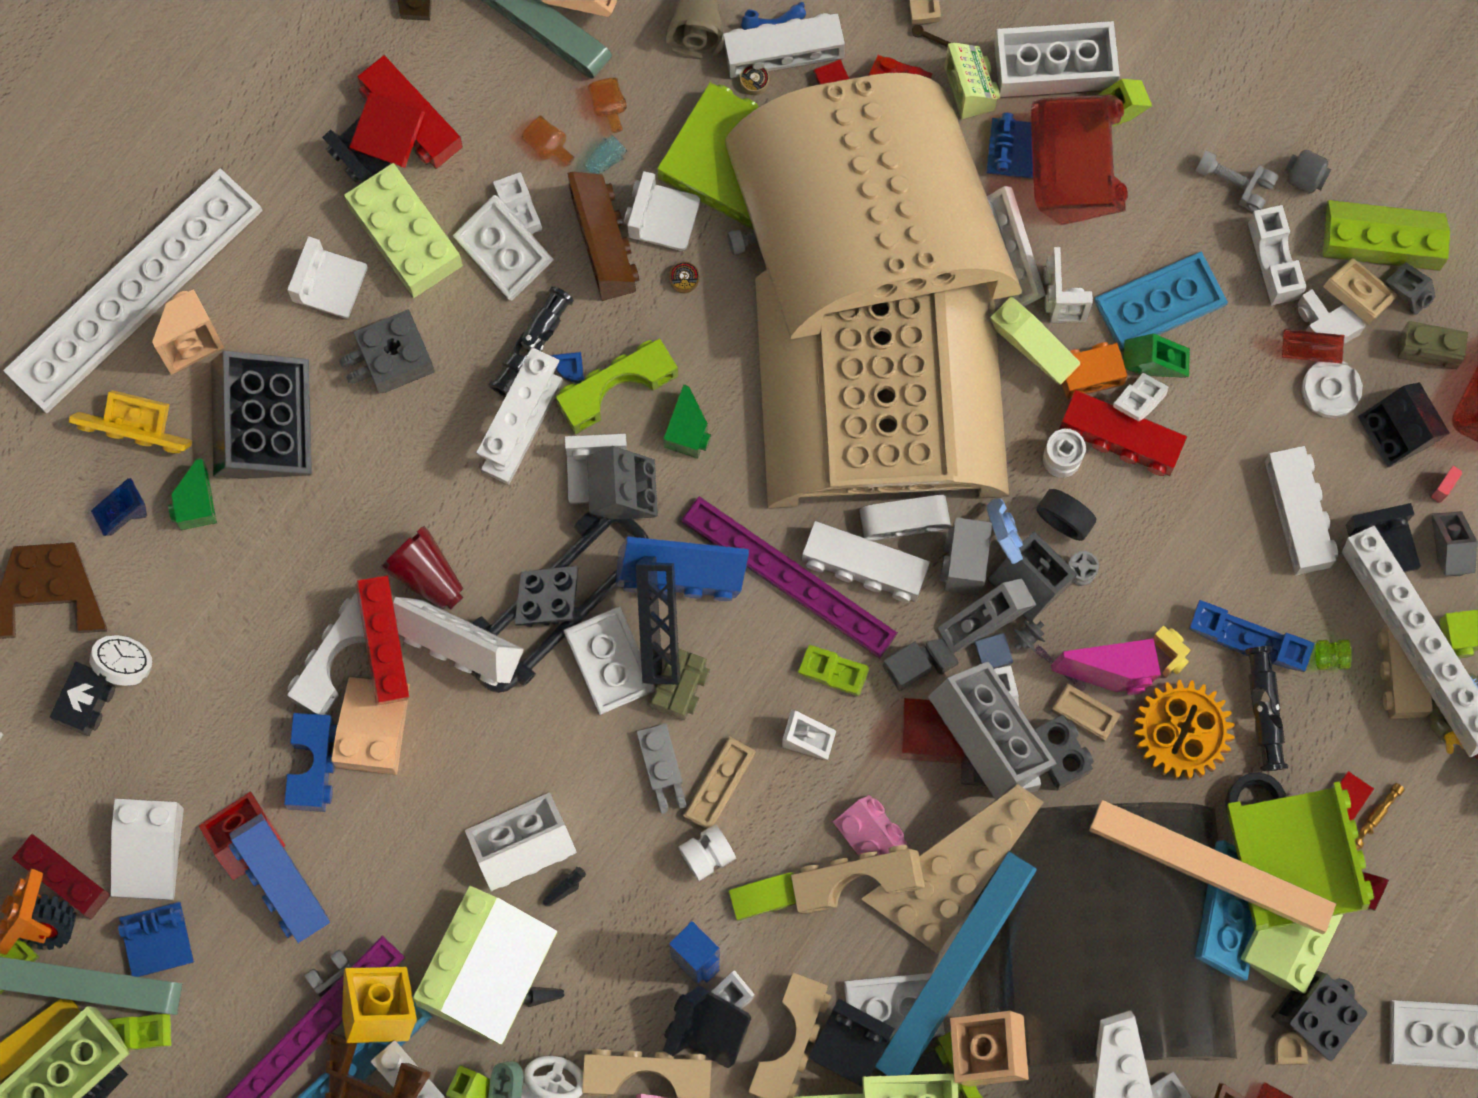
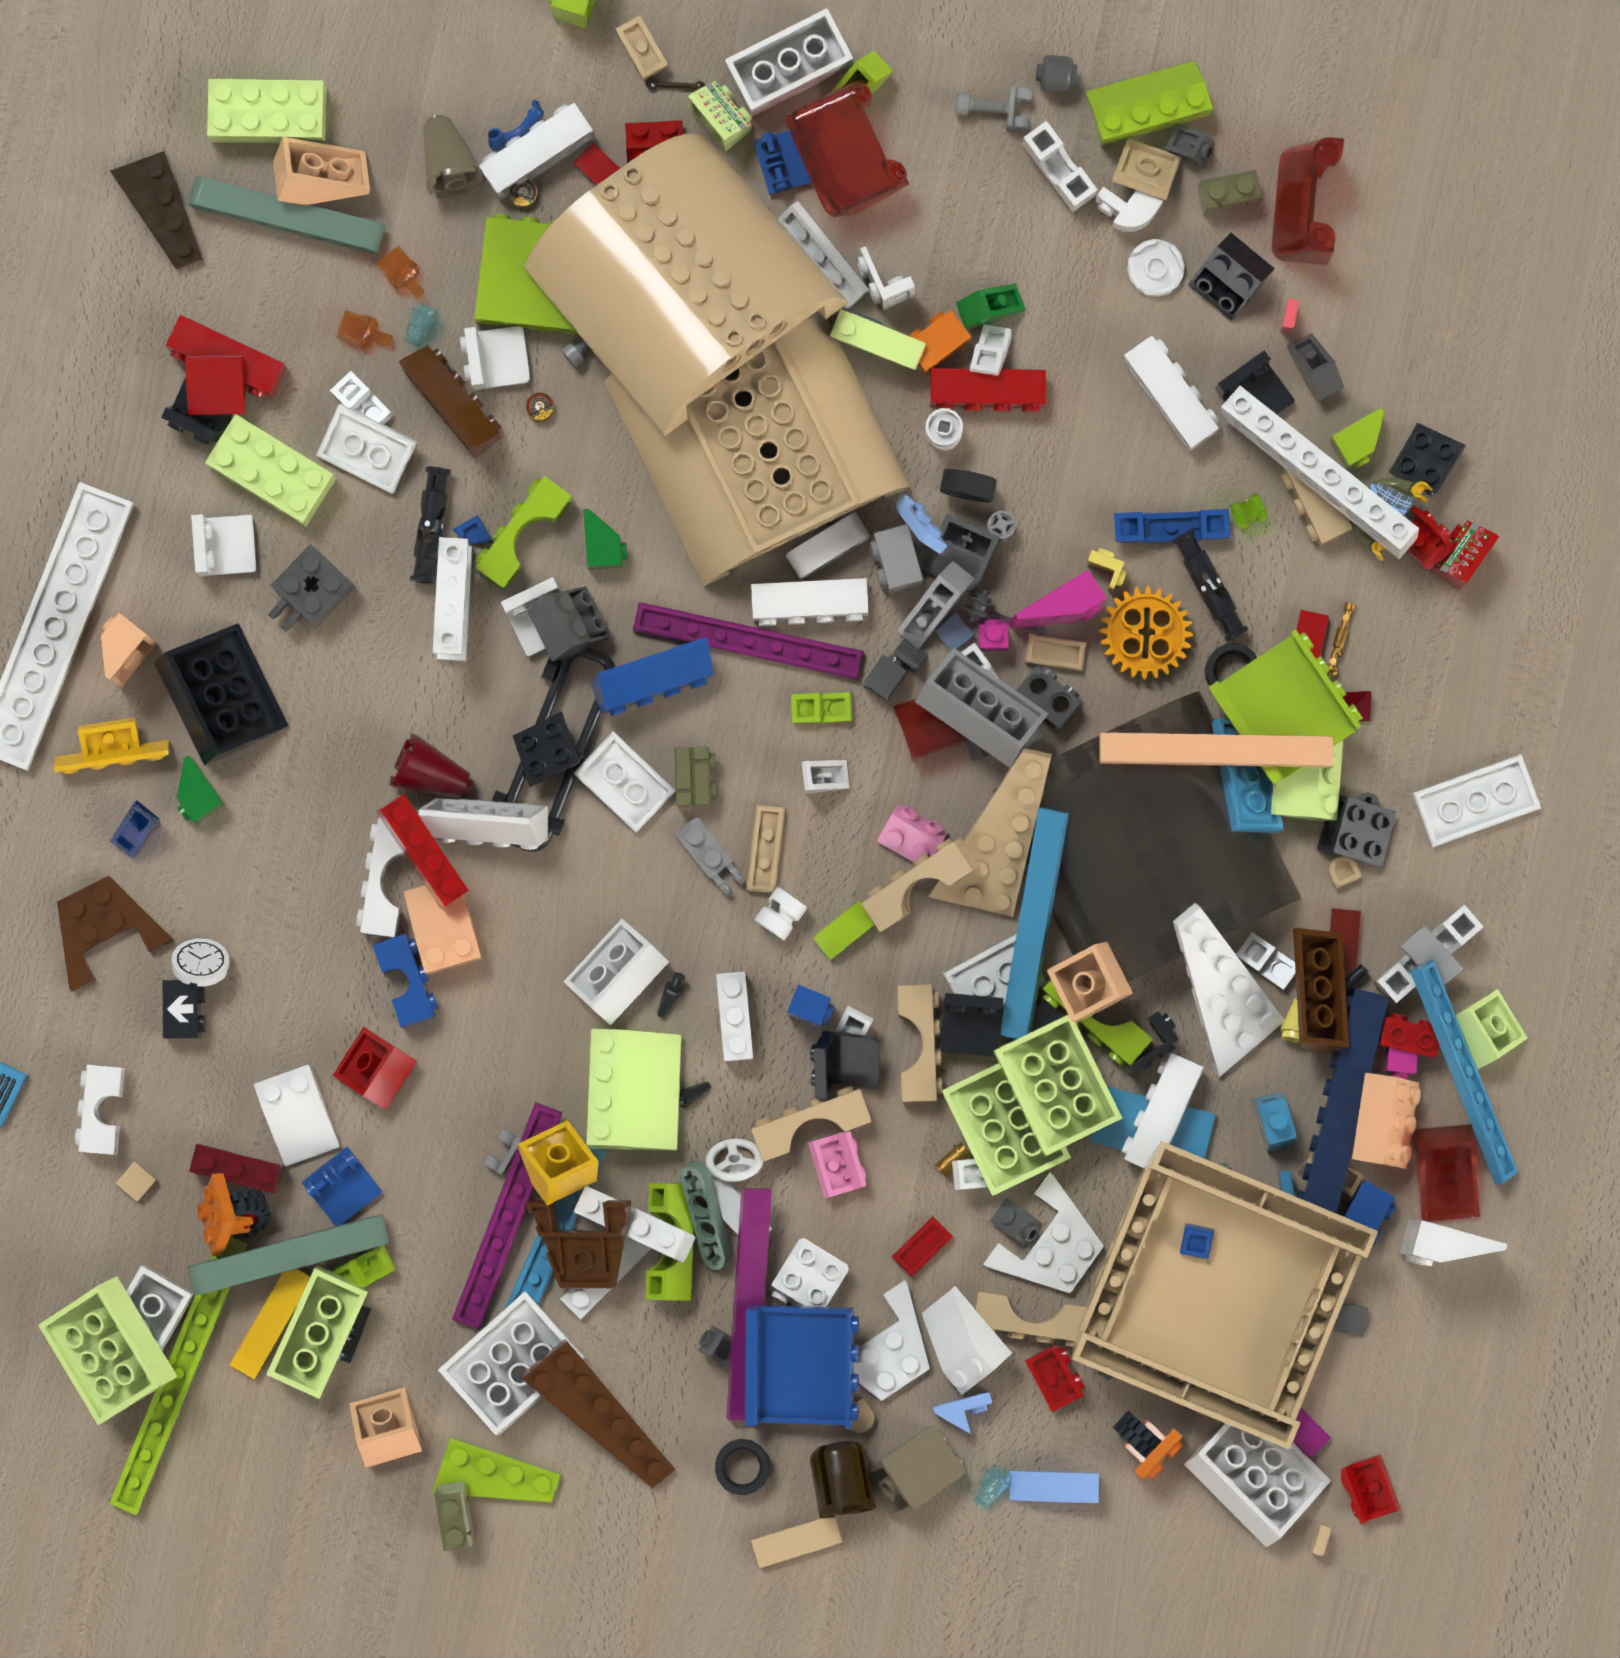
camera: 20 degrees left, 10 degrees up
(279, 878) = (425, 1091): blue brick -> none
(617, 935) = (734, 1016): none -> white arch
(650, 622) = (649, 739): black fence -> none
(1031, 670) = (993, 635): none -> dark pink brick
(1161, 300) = (973, 249): dark azure tile -> none
(1313, 346) = (1124, 238): clear red tile -> none

